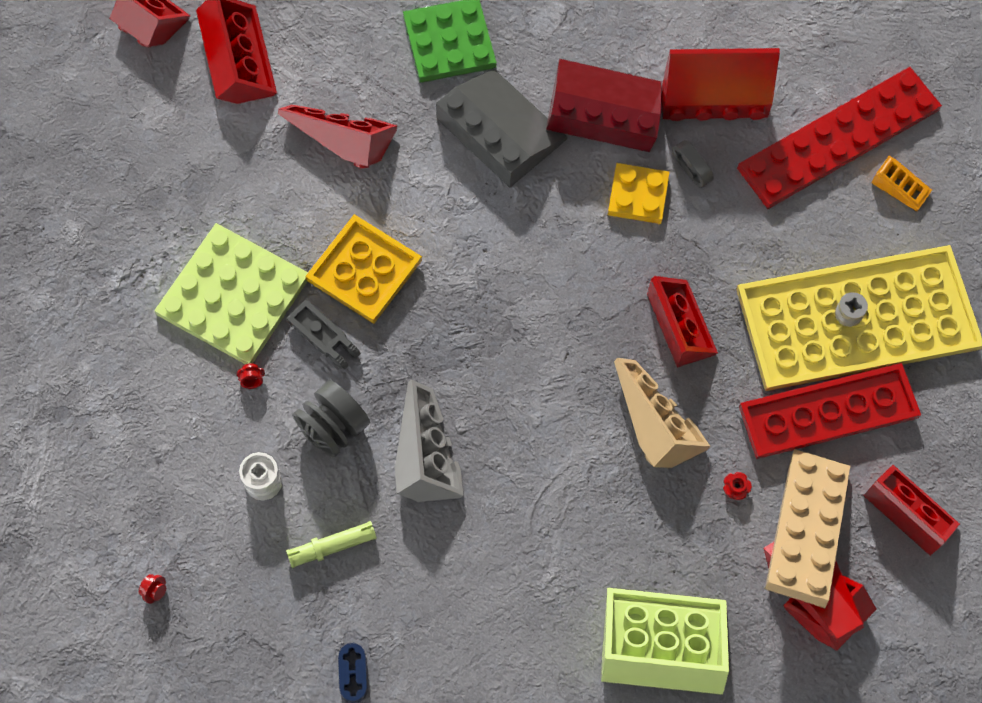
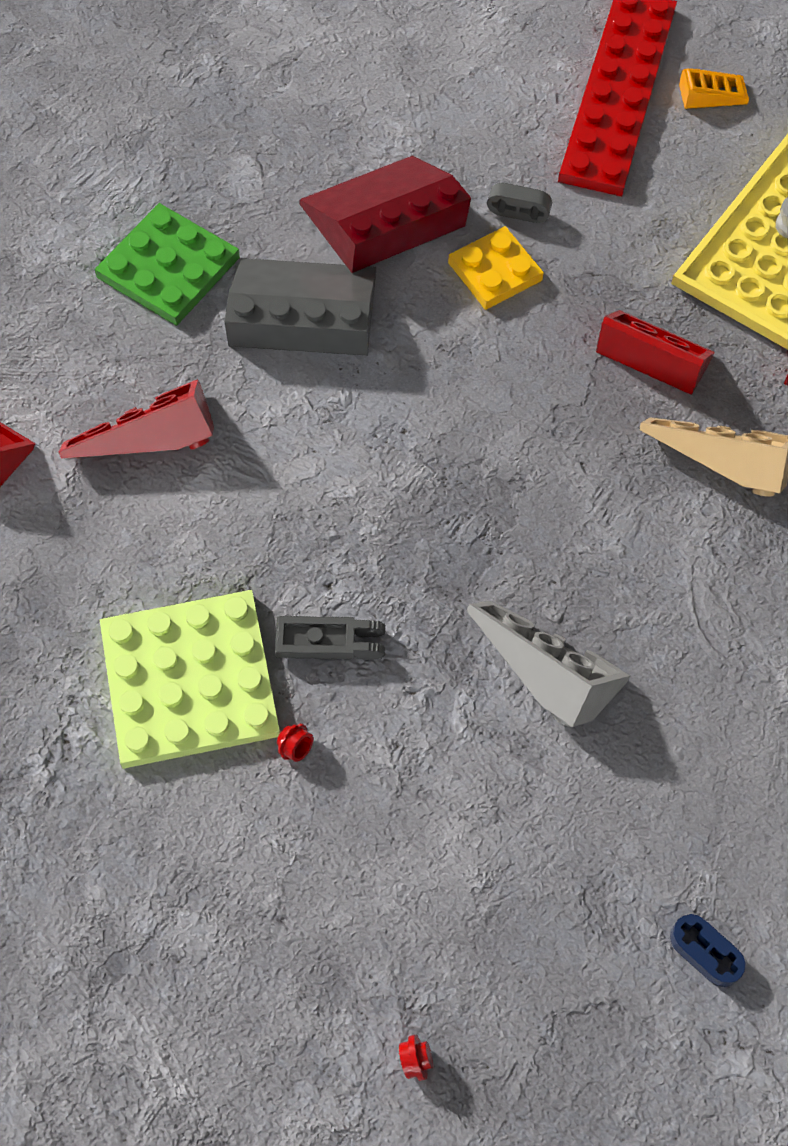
camera: 40 degrees left, 5 degrees down
(260, 476) = (414, 832): white wheel -> none
(326, 423) = (431, 709): dark grey wheel -> none
(337, 542) = (545, 855): yellowish green pin -> none
(363, 268) = (304, 540): yellow plate -> none
(719, 83) = (480, 107): red slope -> none

